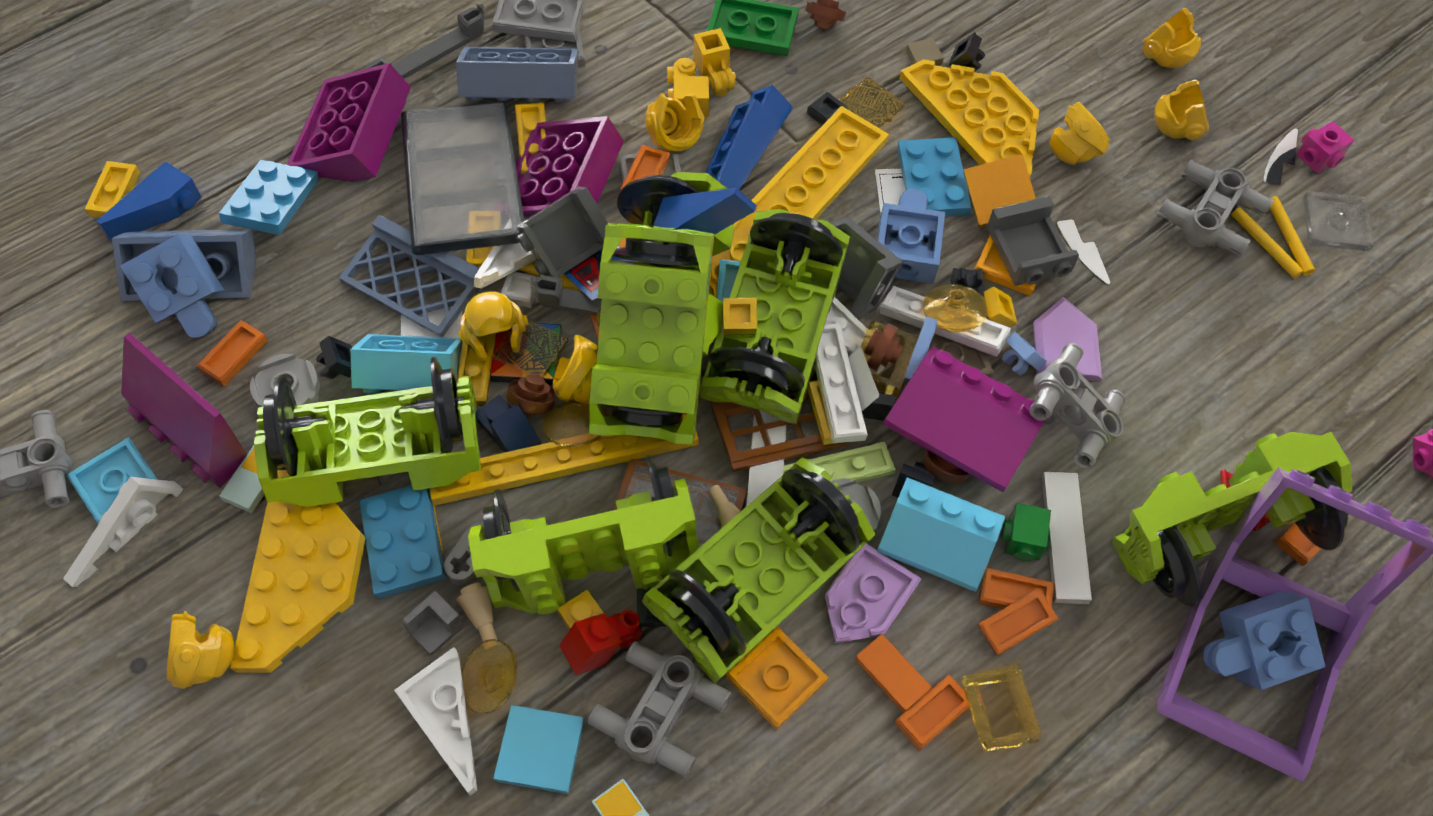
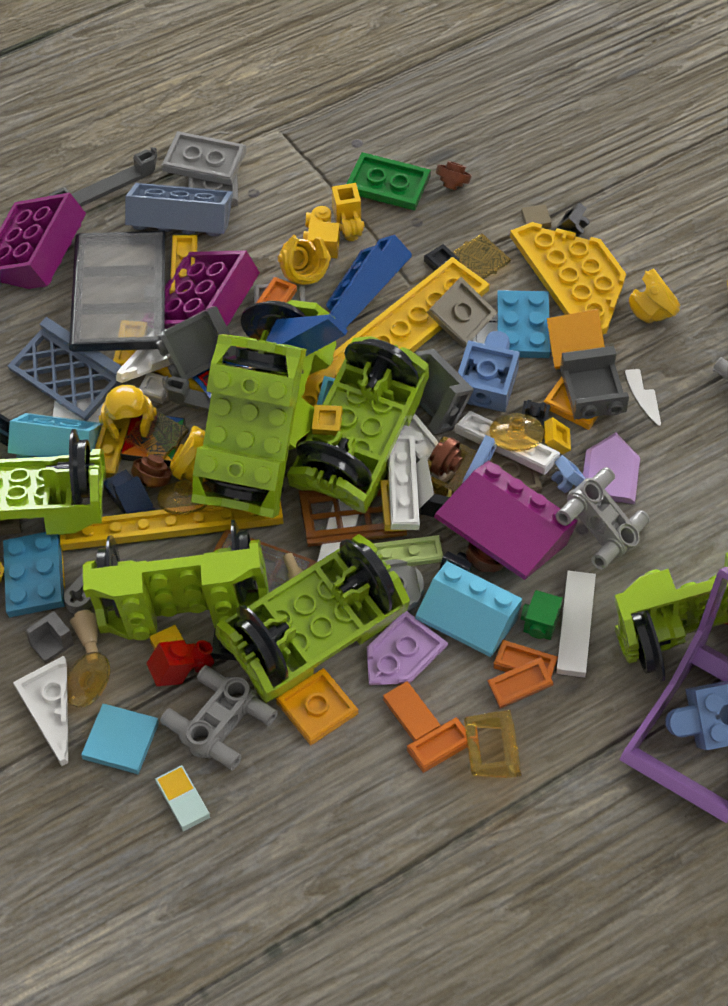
camera: 10 degrees right, 5 degrees down
(864, 170) = (462, 312): none -> dark tan tile

